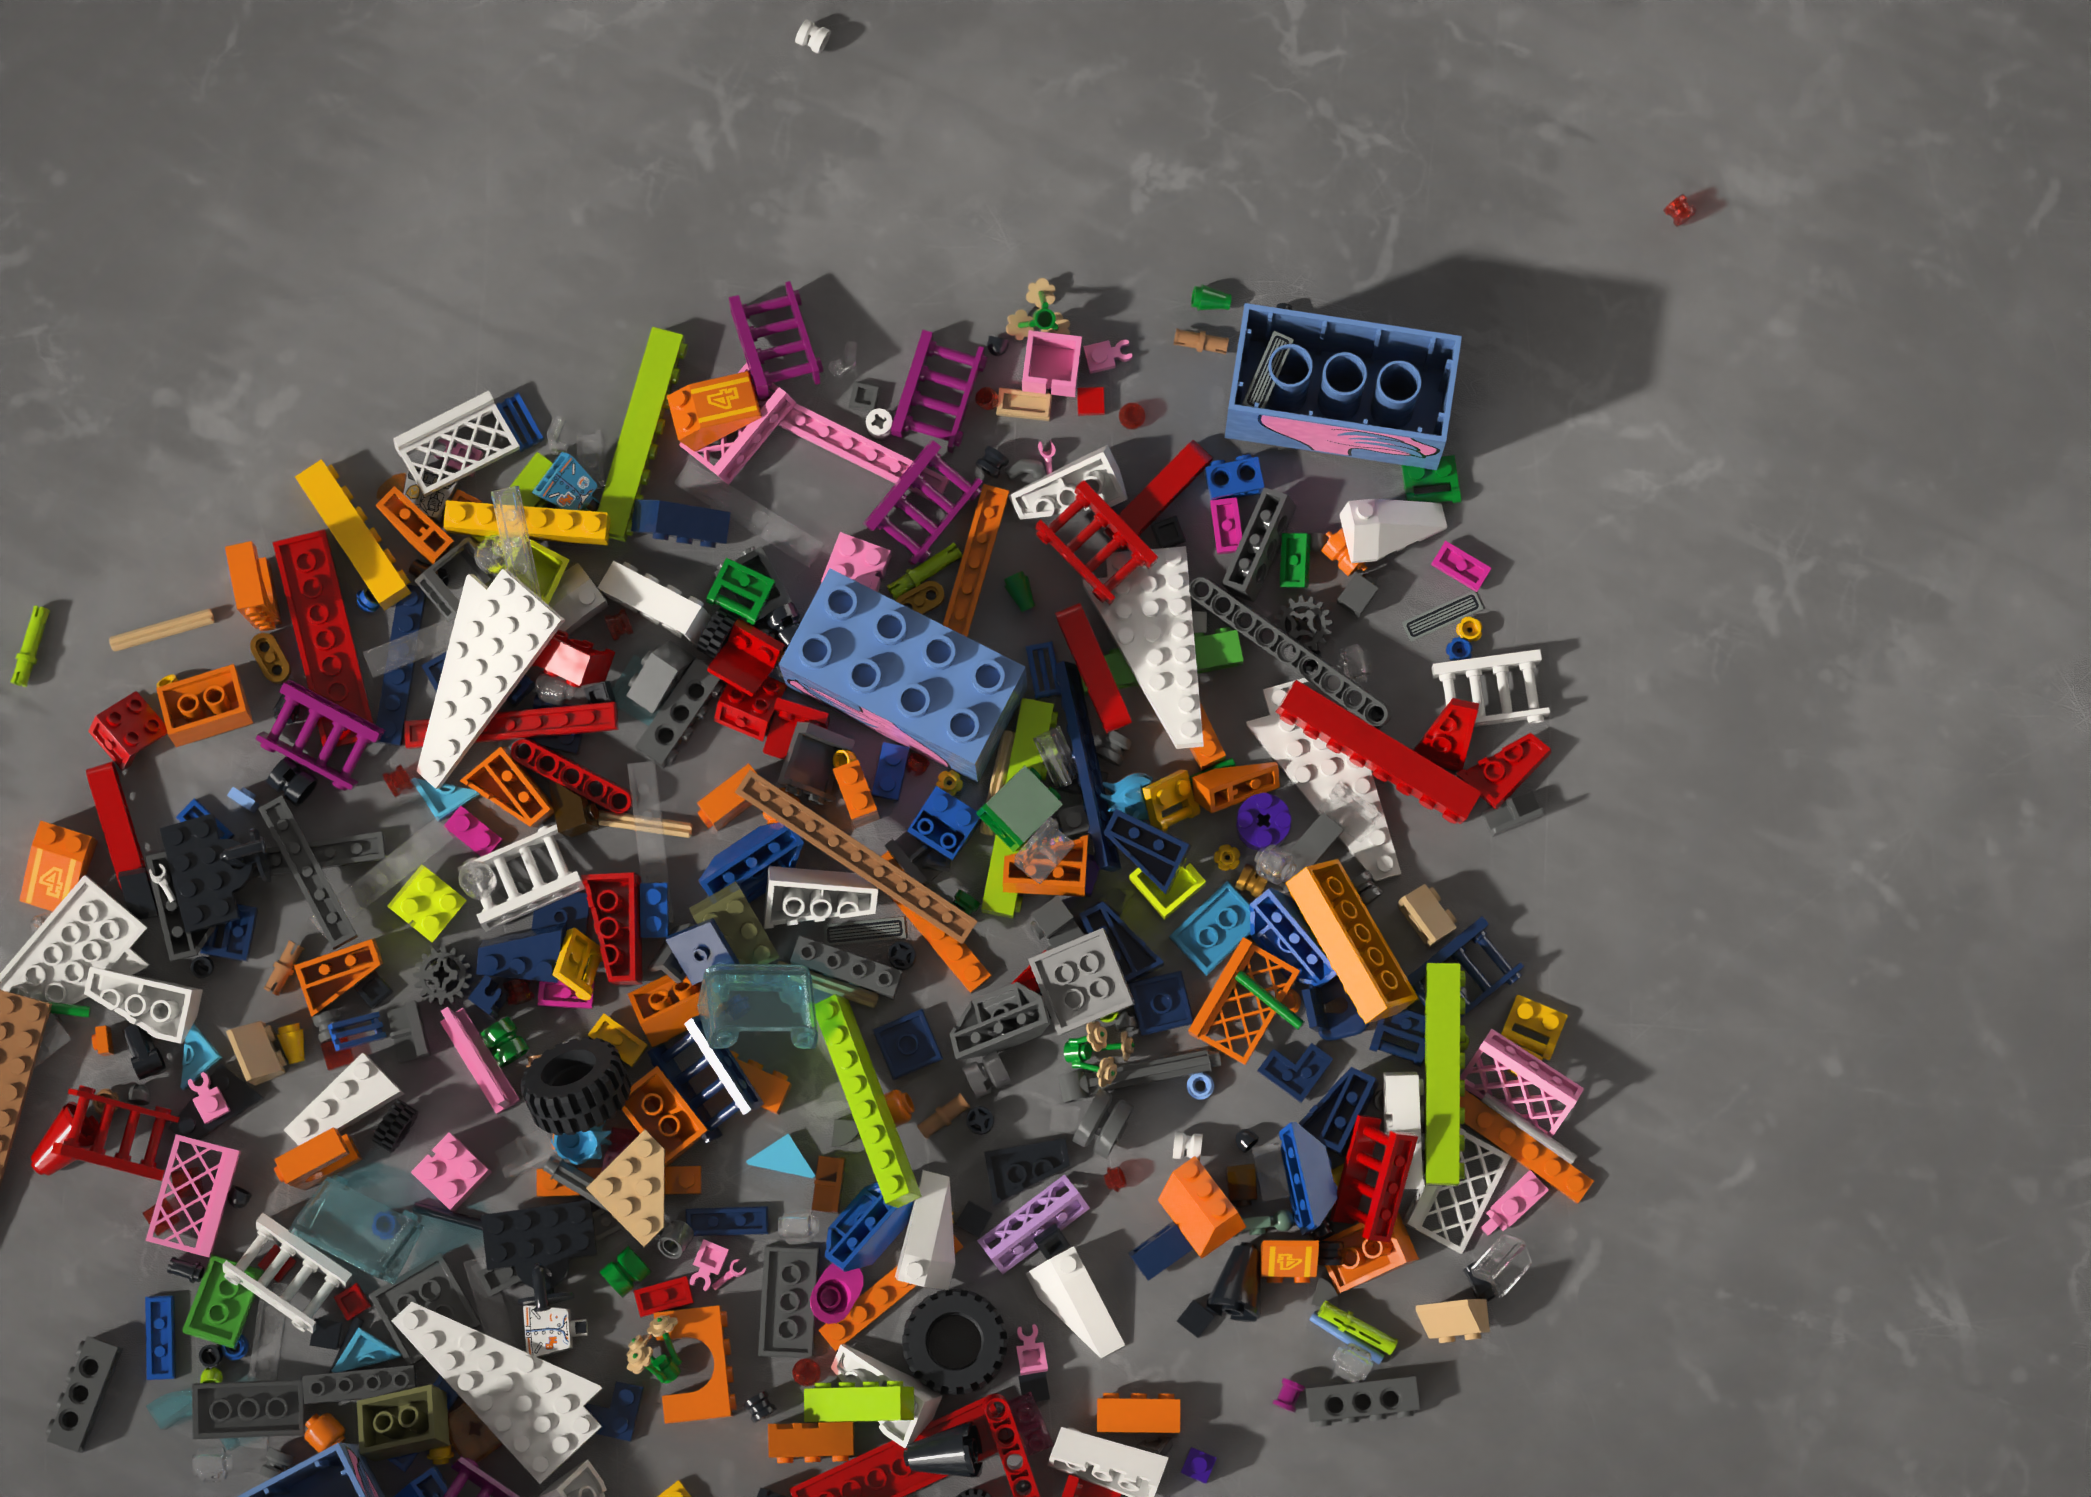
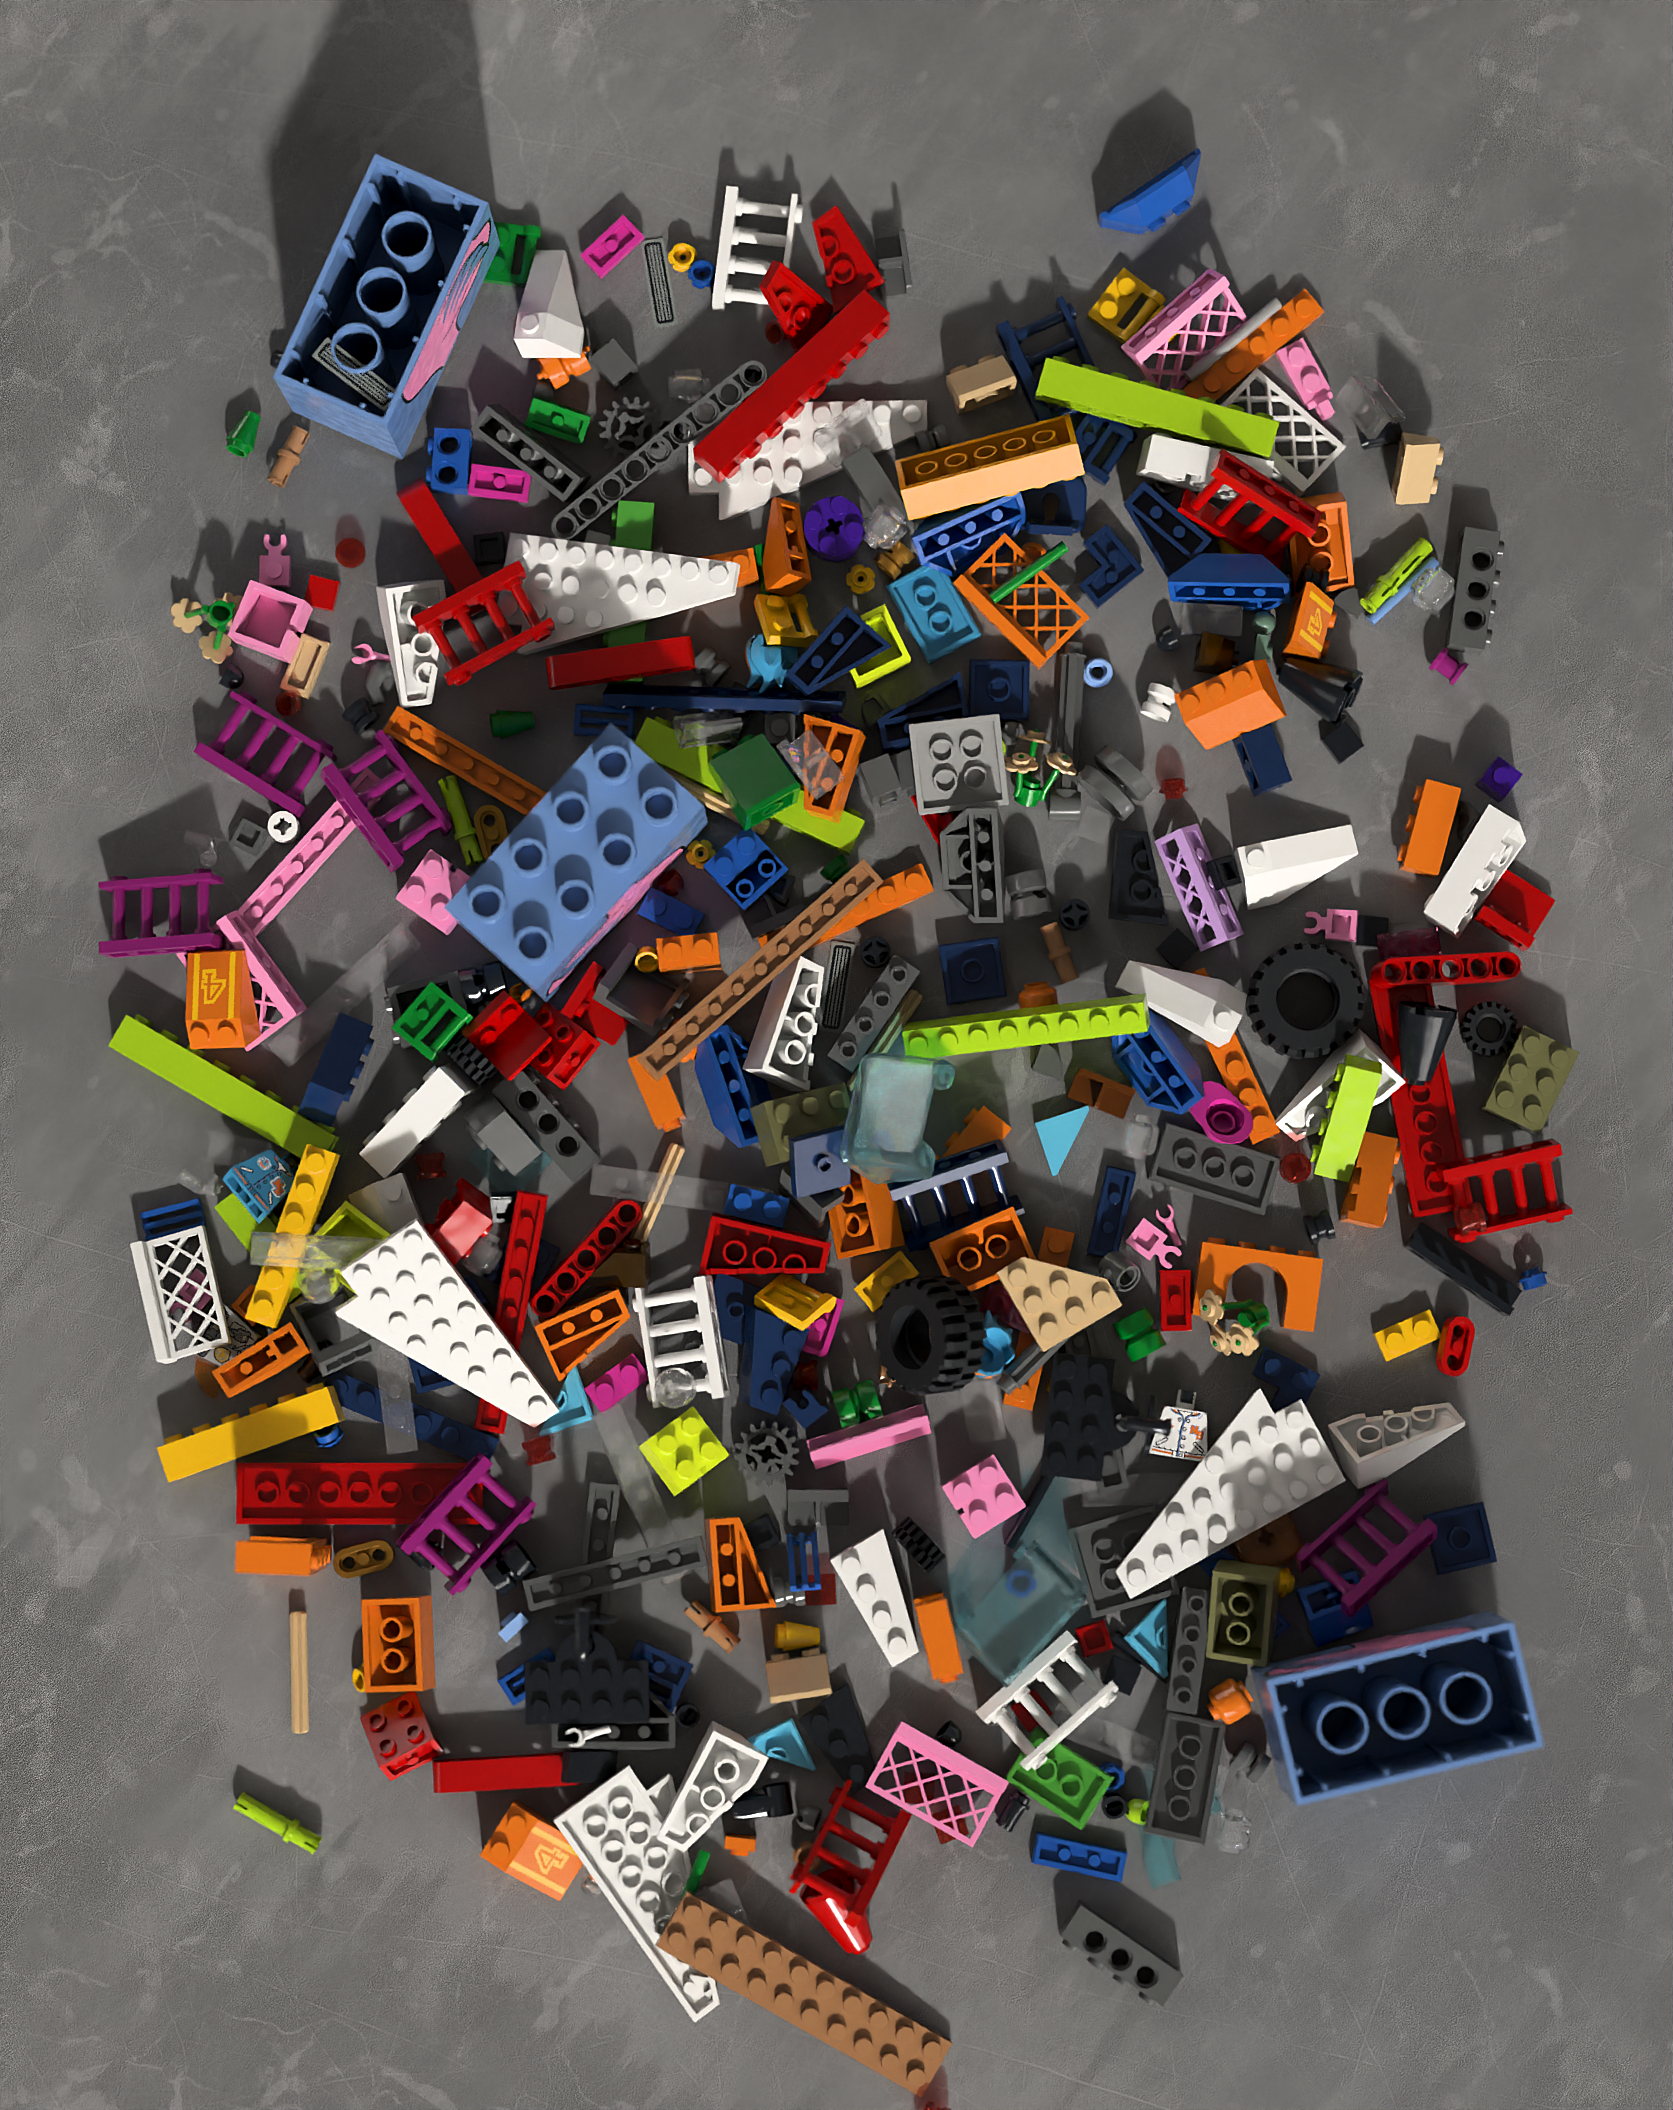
camera: 80 degrees left, 5 degrees up
(210, 1101) = (839, 1740): bright pink plate -> none
(1422, 726) = (775, 333): none -> clear red hinge
(1636, 1028) = (1155, 200): none -> blue wedge

